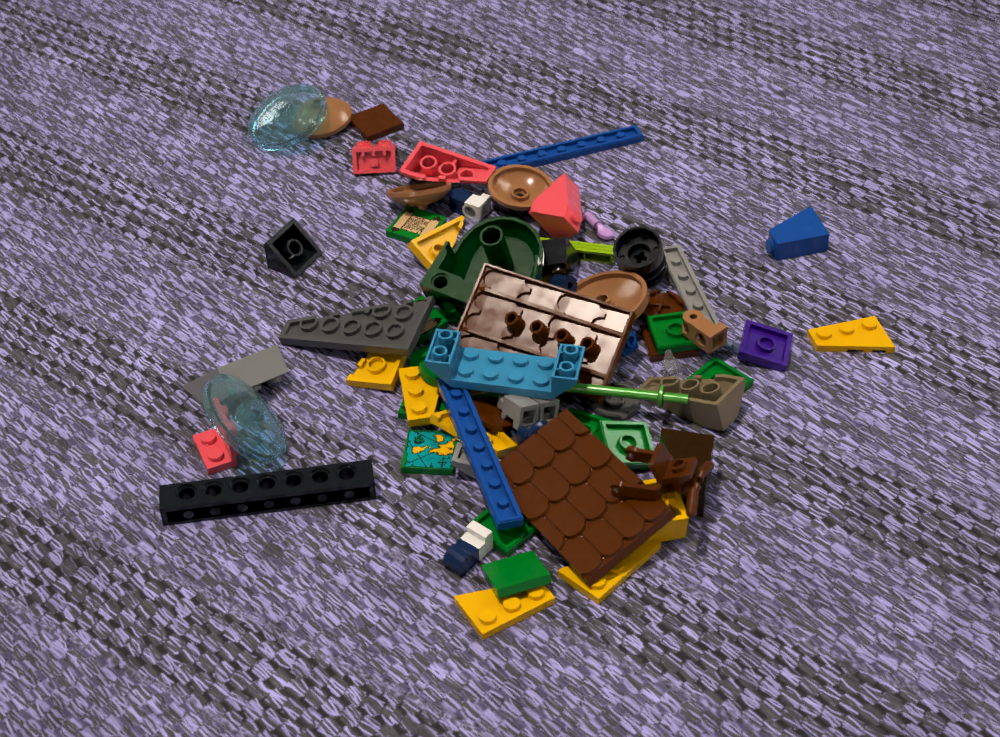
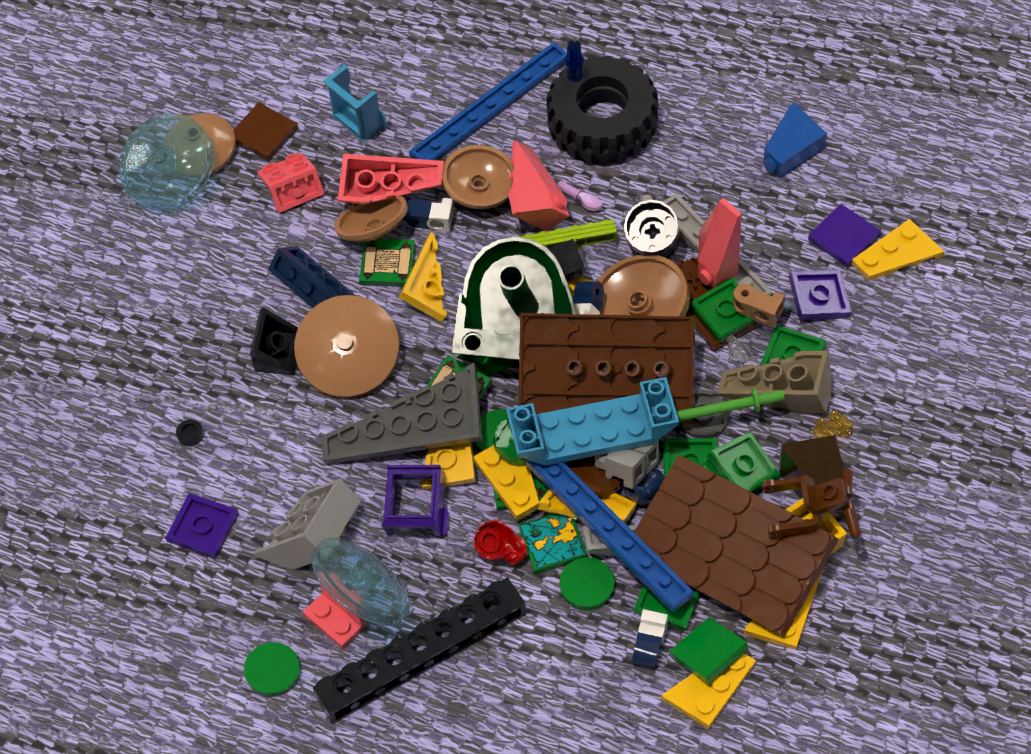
camera: 20 degrees left, 15 degrees up
(141, 469) = (272, 669): none -> green tile
(156, 354) = (202, 525): none -> dark purple tile
(190, 291) = (189, 432): none -> black tile
(343, 399) = (438, 514): none -> dark purple piece
(346, 267) = (347, 346): none -> medium nougat dish
(350, 224) = (305, 276): none -> dark blue fence
(382, 435) = (499, 542): none -> red hair
(440, 492) = (587, 583): none -> green tile
(449, 117) = (359, 117): none -> dark azure piece
(634, 121) = (574, 61): none -> clear blue axle
(647, 172) = (603, 138): none -> black tyre
(686, 282) = (719, 245): none -> coral wedge
(729, 445) = (836, 426): none -> clear yellow piece
(810, 311) = (844, 235): none -> dark purple tile

